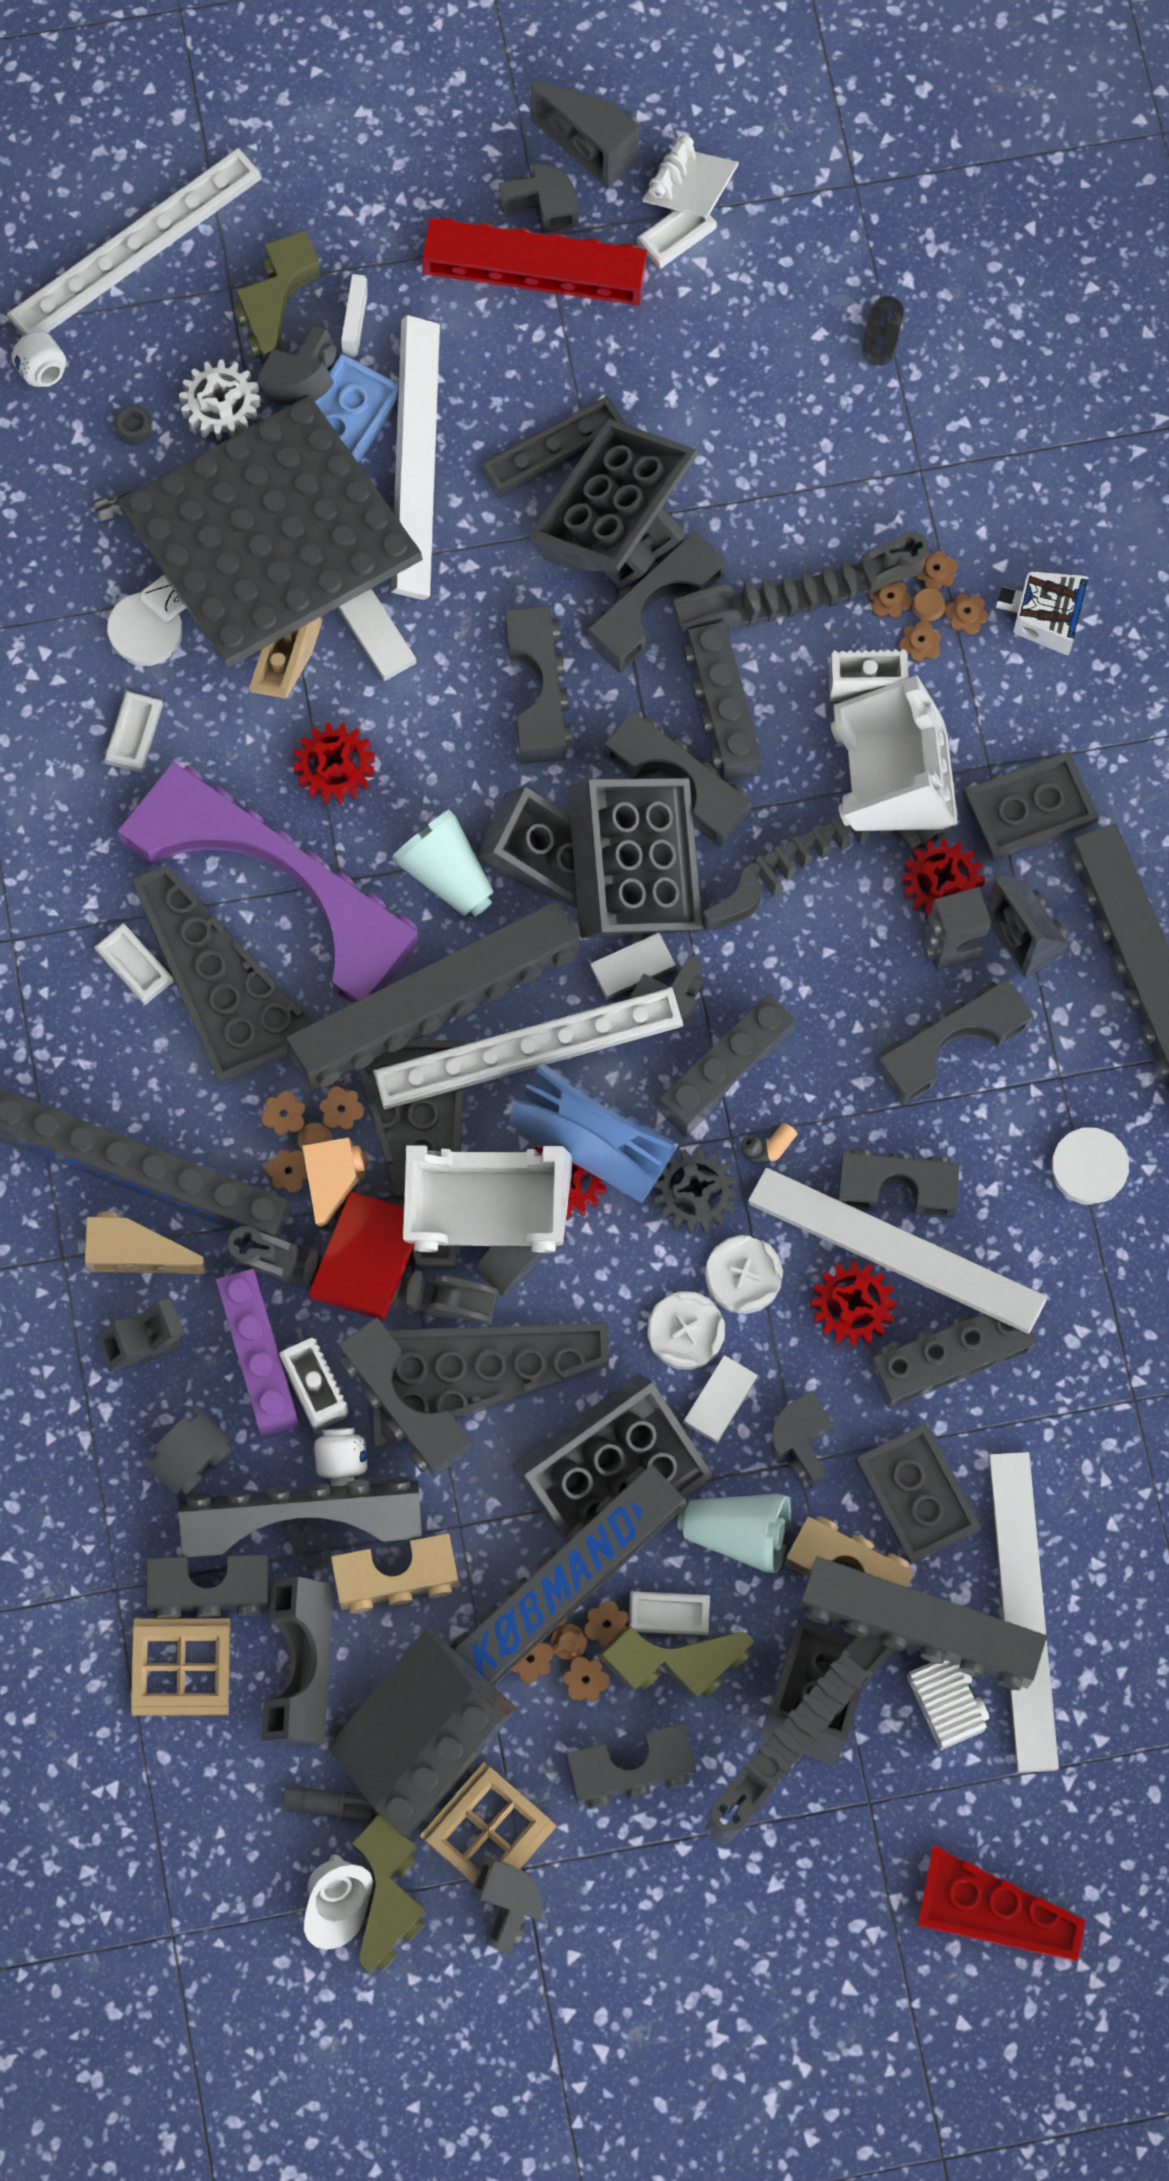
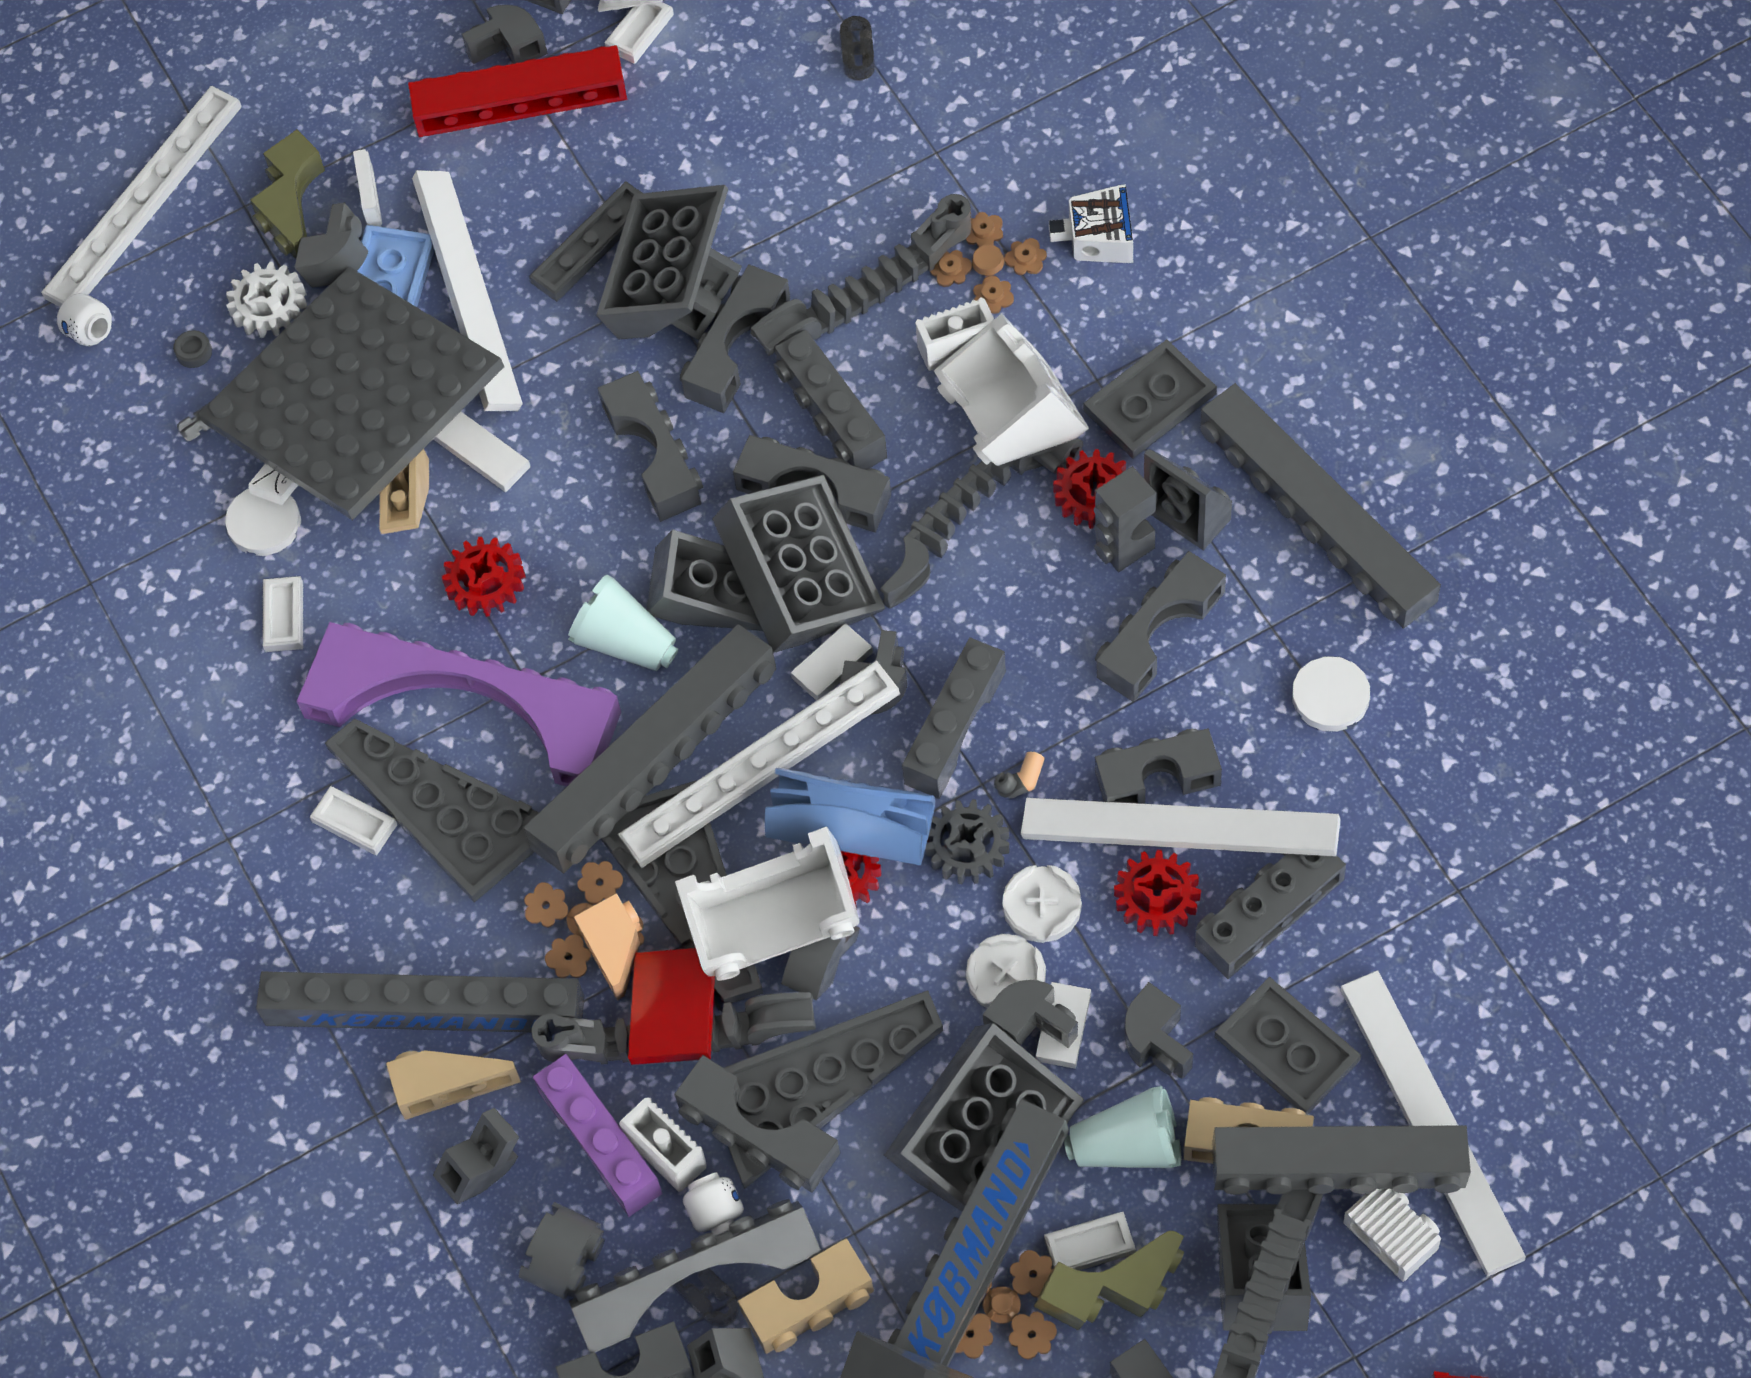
camera: 10 degrees left, 10 degrees down
(689, 1373) = (1028, 1006): none -> dark grey brick

